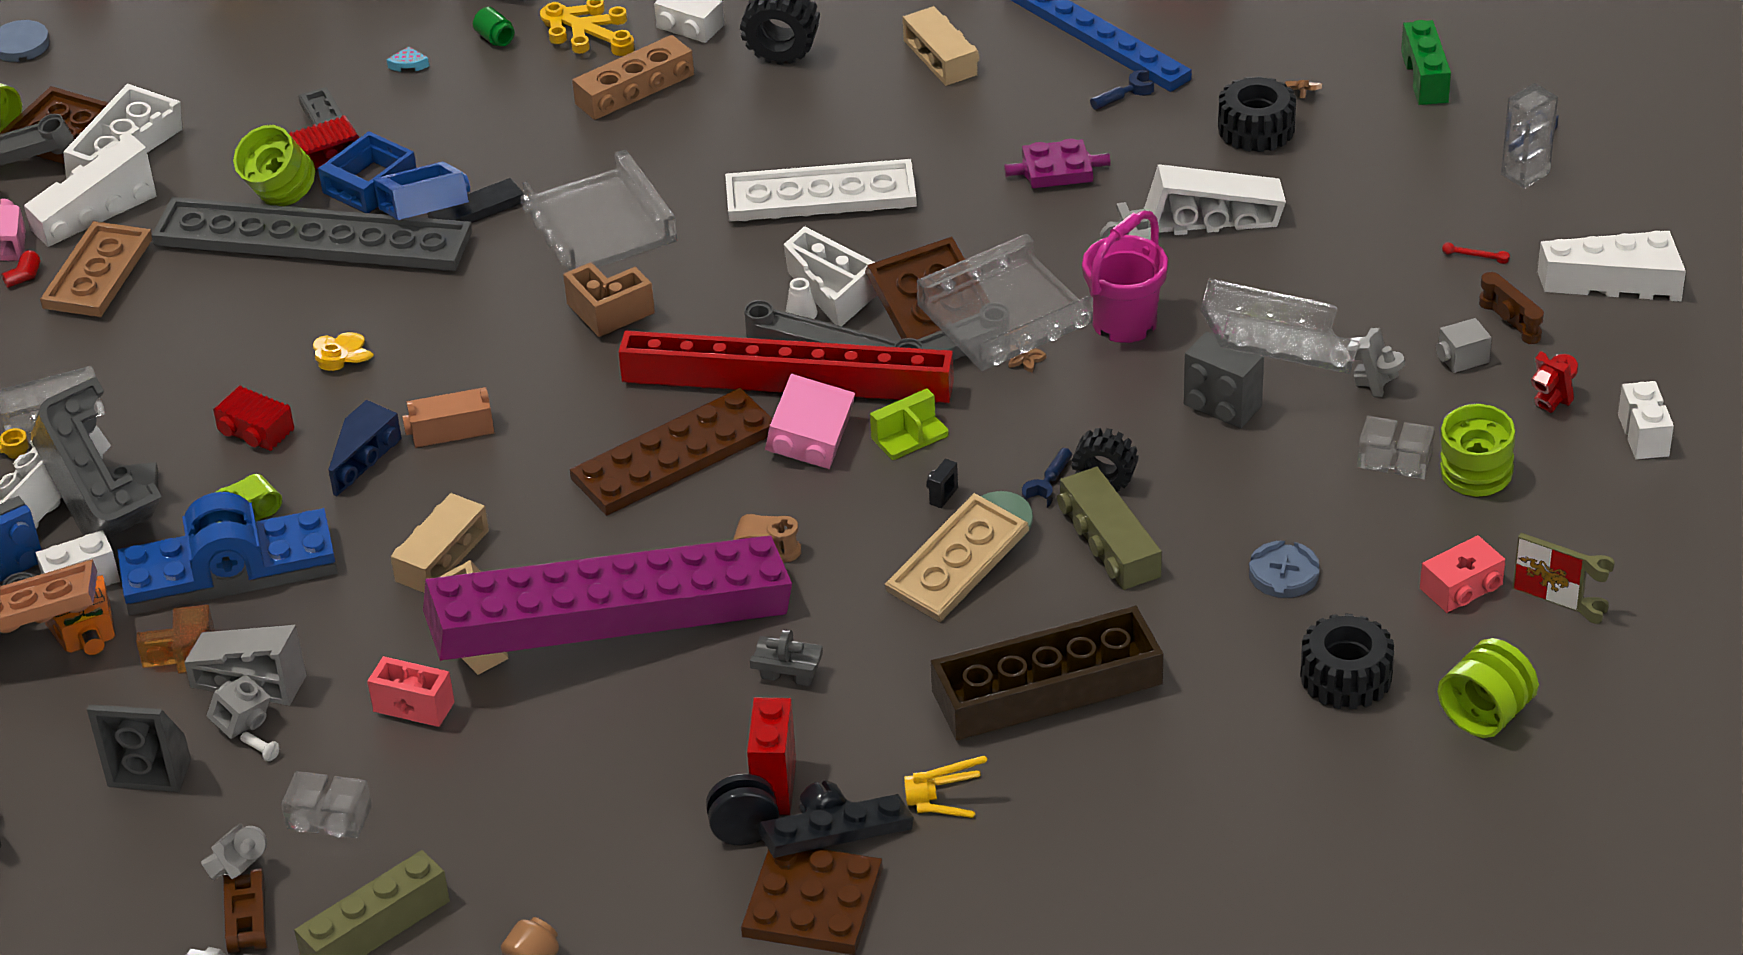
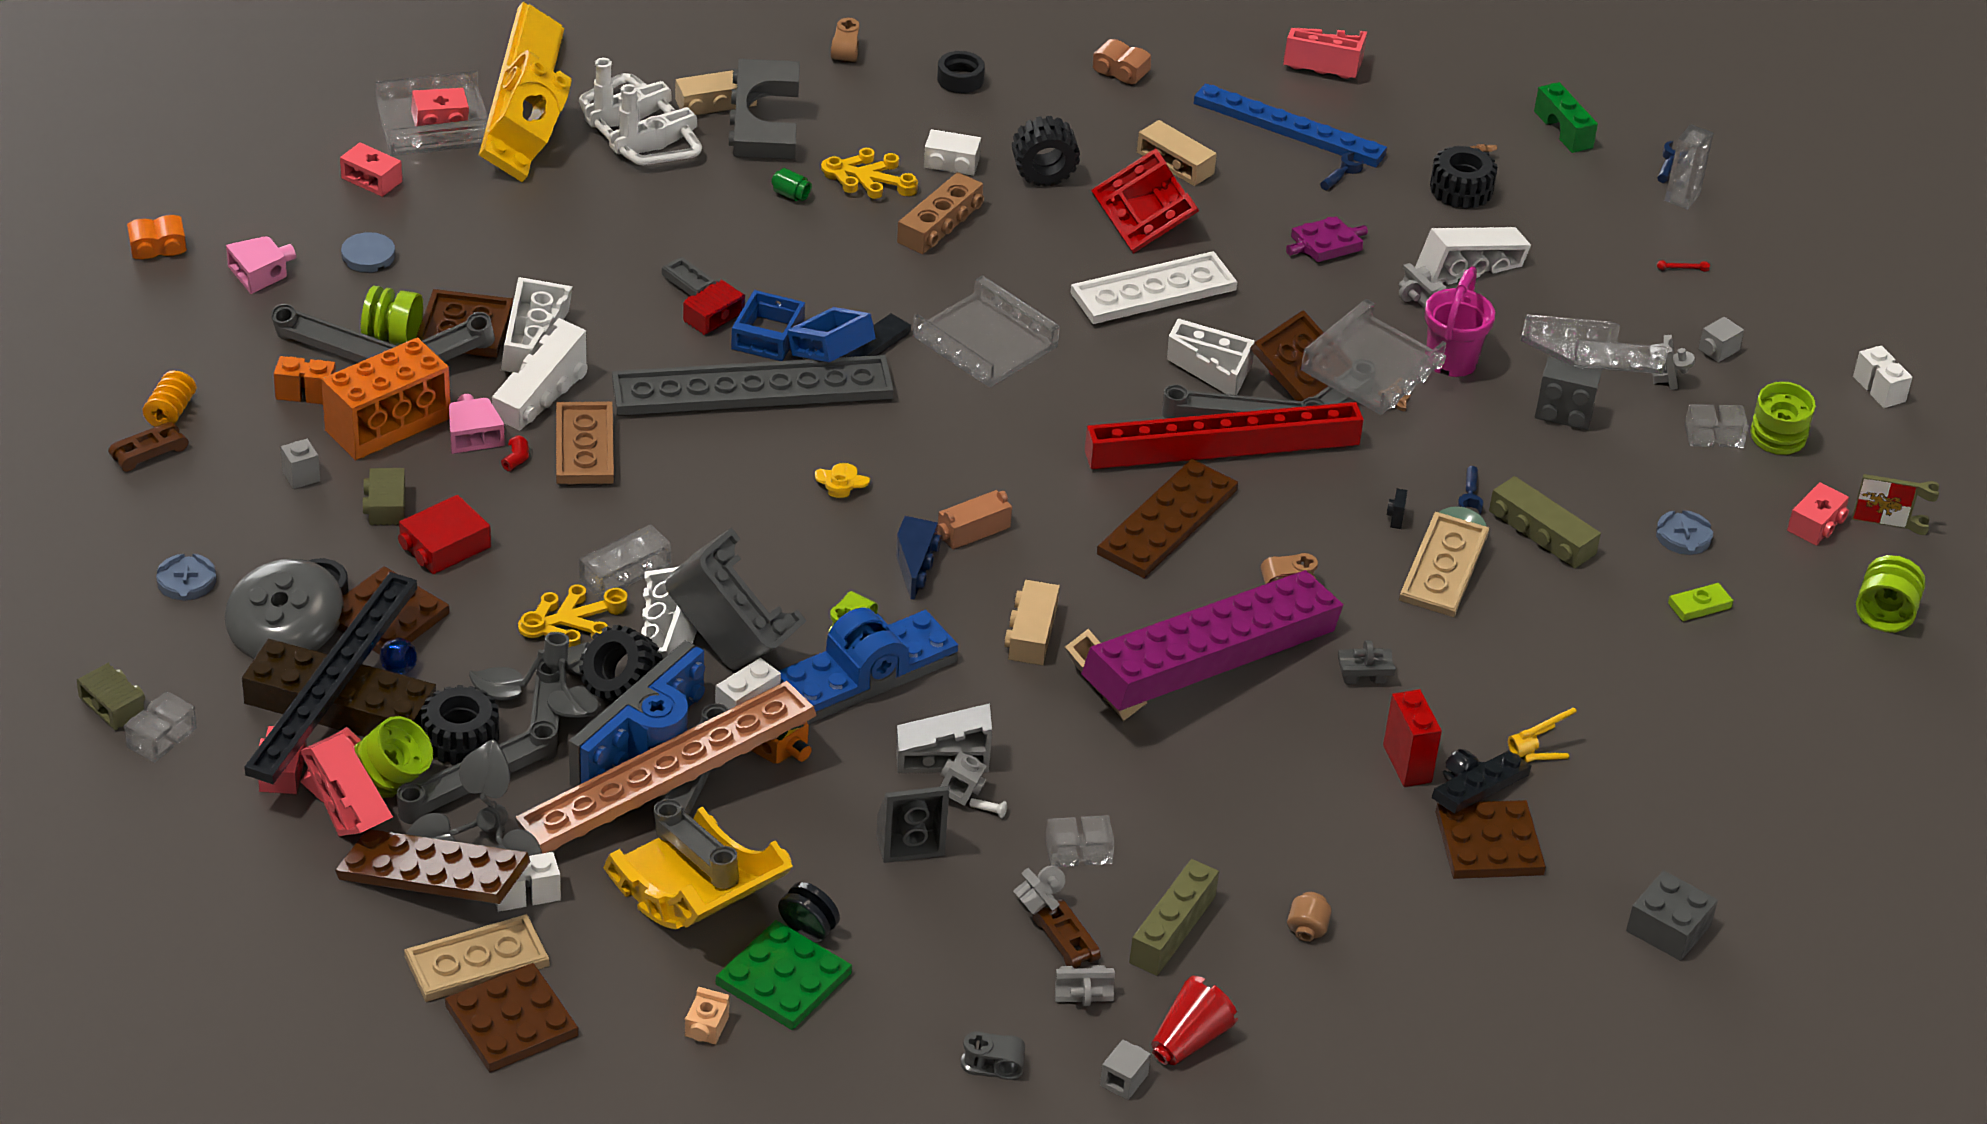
camera: 25 degrees left, 0 degrees up
(175, 644) = (875, 735): clear orange brick -> none
(254, 418) = (810, 546): red brick -> none
(274, 165) = (695, 317): lime wheel -> none
(407, 59) = (732, 222): medium azure tile -> none
(411, 691) = (1094, 741): coral brick -> none
(608, 302) = (1043, 405): medium nougat brick -> none
(738, 806) = (1409, 782): black head -> none
(800, 299) = (1201, 378): white cone -> none
(809, 421) = (1269, 476): bright pink brick -> none
(870, 94) = (1144, 200): none -> red slope
(907, 425) = (1340, 469): lime panel -> none
(1046, 672) = (1568, 639): dark brown brick -> none
(1110, 447) = (1516, 458): black tyre -> none
(1252, 656) = (1700, 602): none -> lime plate
(1347, 661) = (1777, 592): black tyre -> none
(1511, 306) = (1738, 304): reddish brown plate -> none
(1554, 380) = (1805, 356): red hips -> none
(1613, 264) = (1794, 260): white wedge -> none

